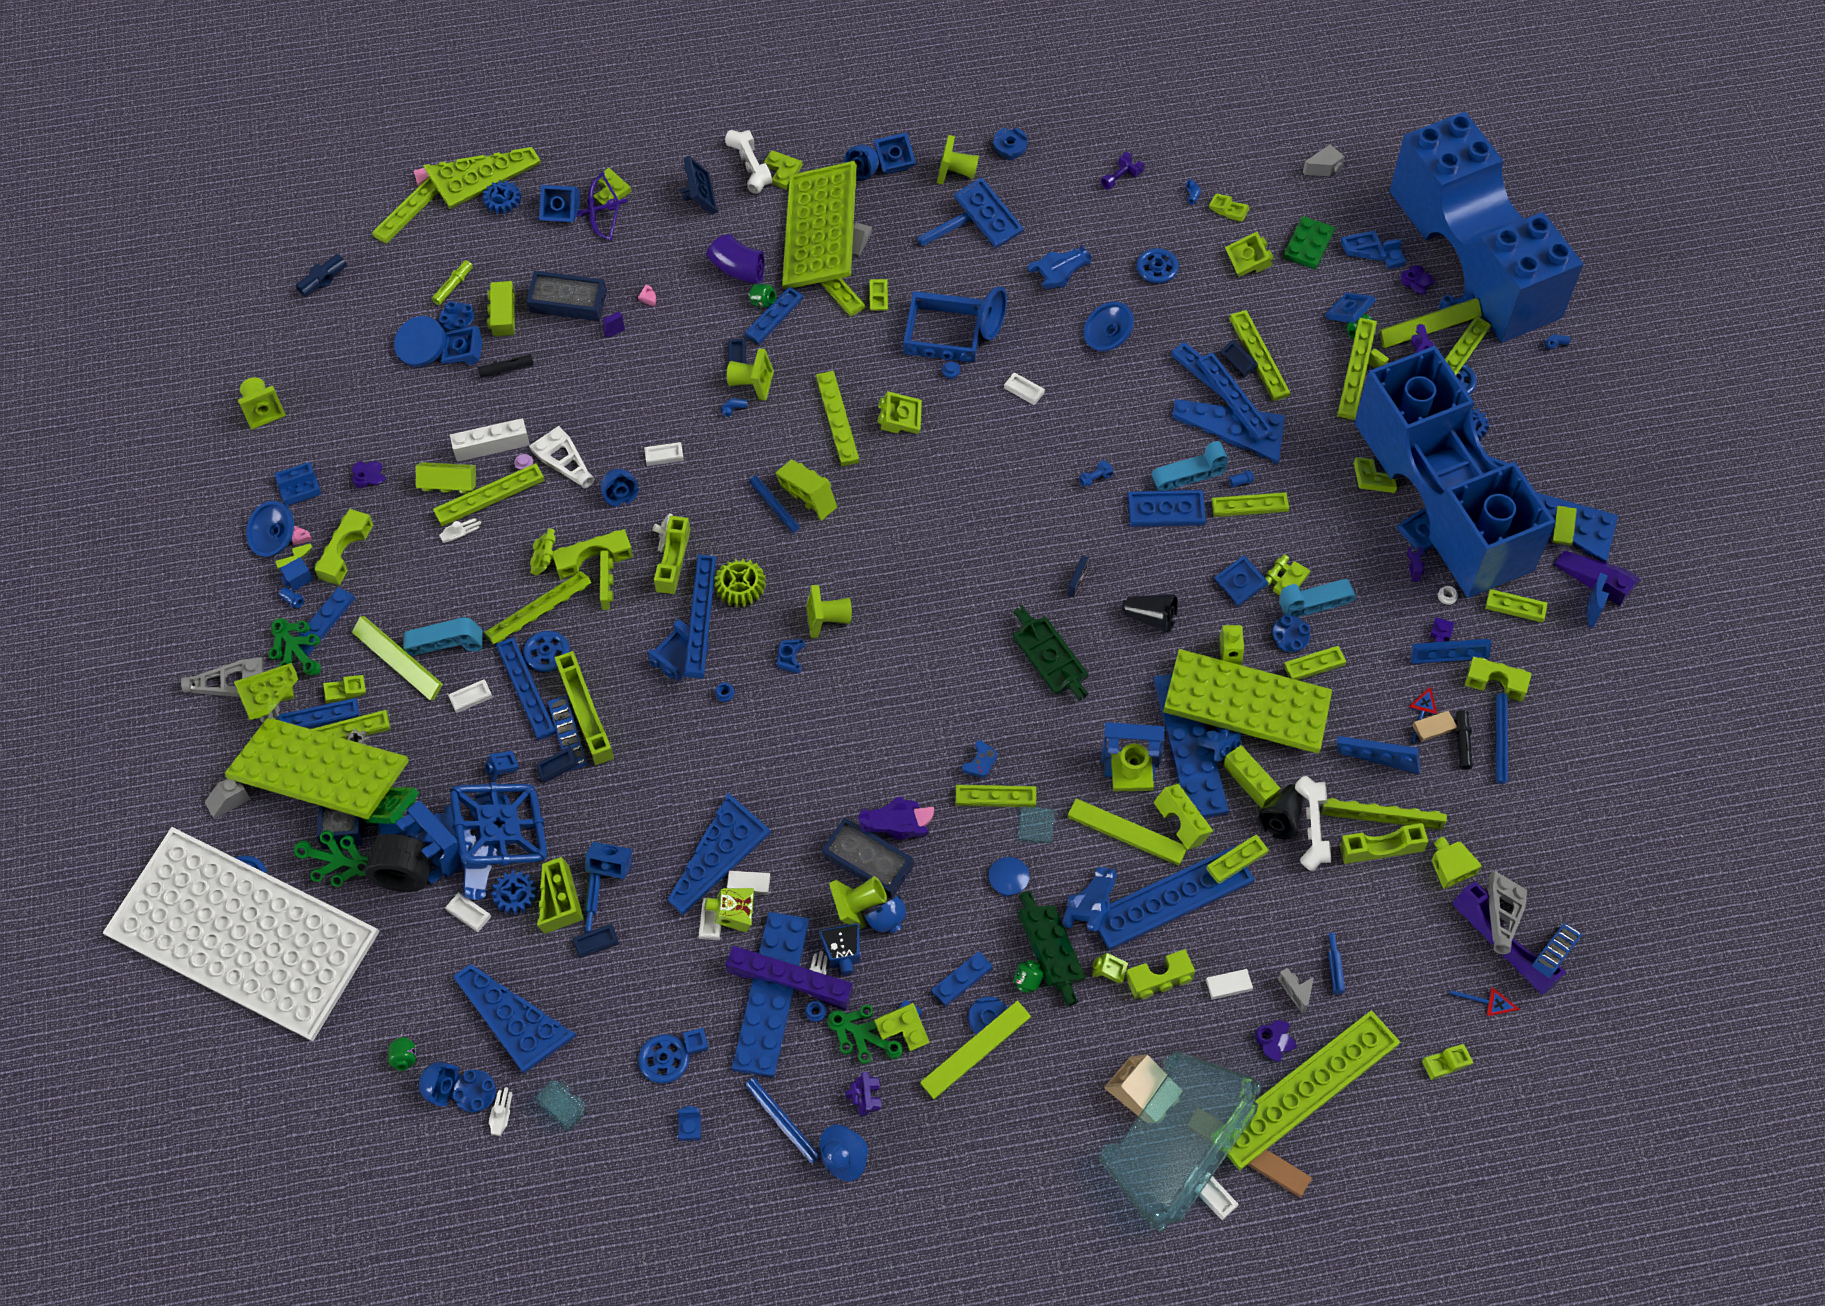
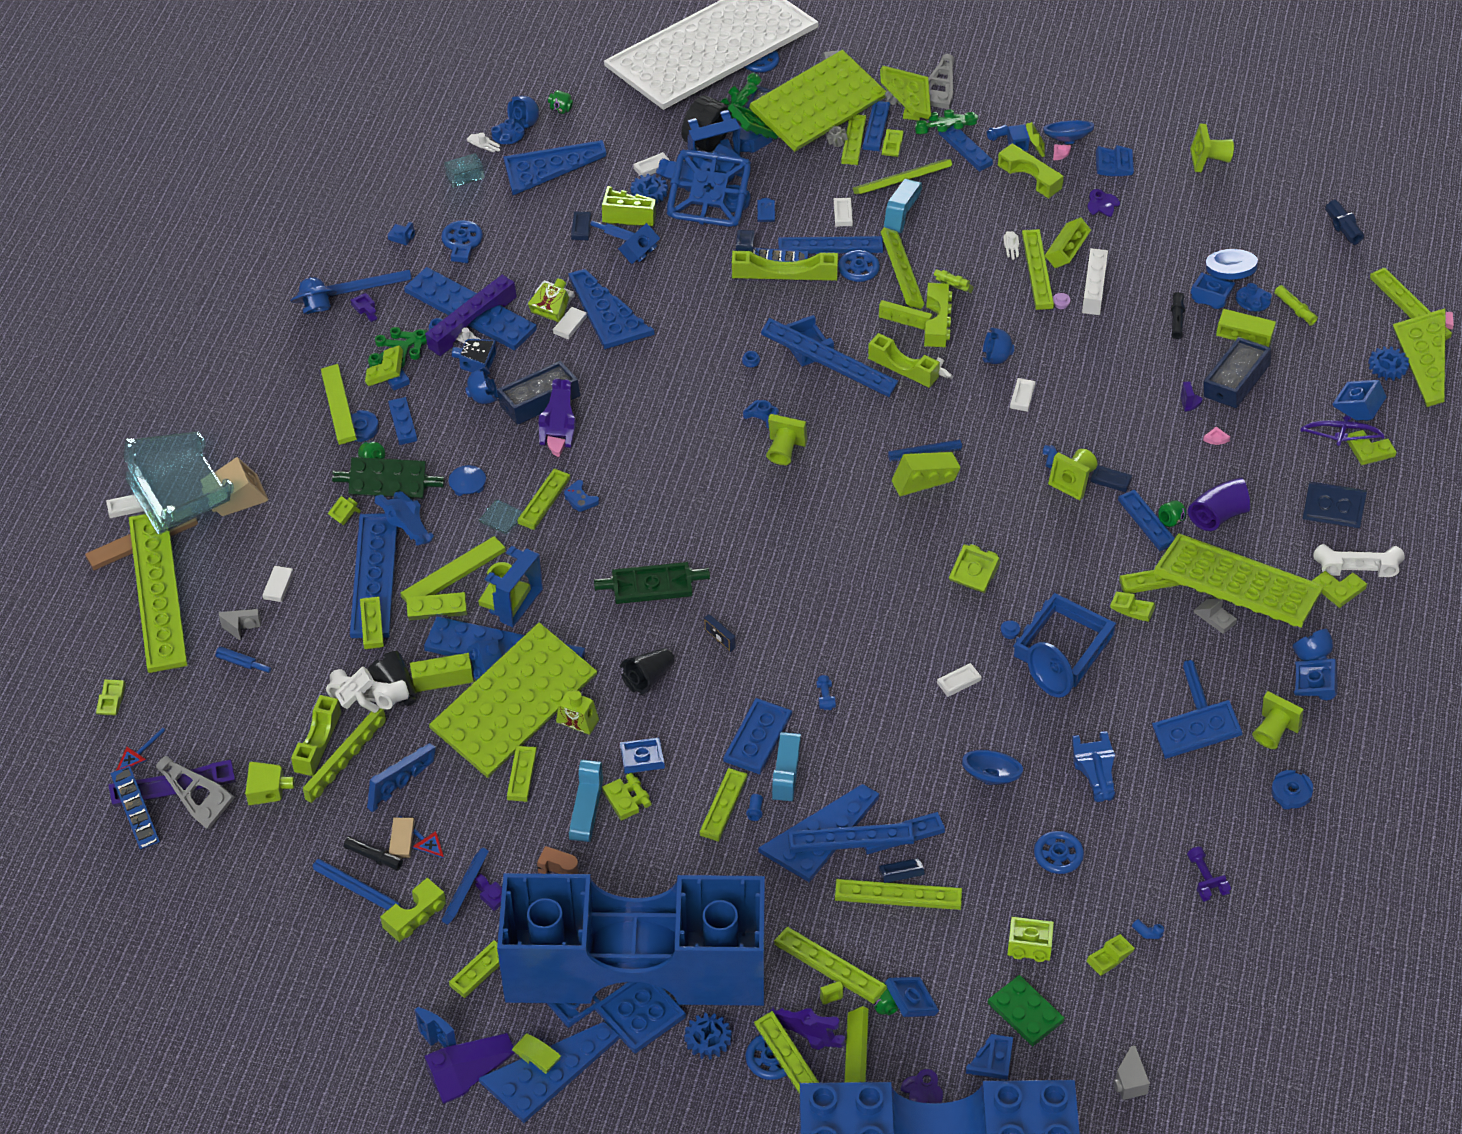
camera: 115 degrees right, 10 degrees down
(551, 443) = (1072, 319): white plate -> none
(739, 589) = (852, 399): lime gear -> none
(820, 1104) = (364, 304): none -> dark purple plate
(837, 418) = (998, 526): lime plate -> none
(852, 901) = (504, 364): lime plant -> none
(861, 1094) = (352, 327): dark purple hips -> none
(1145, 983) = (316, 526): lime arch -> none
(1278, 1039) = (212, 592): dark purple plate -> none
(1291, 633) = (562, 770): blue dish -> none
(1329, 818) = (354, 690): none -> white plate
(1383, 595) = (557, 862): none -> nougat leg
(1394, 255) = (967, 1082): blue bracket -> none

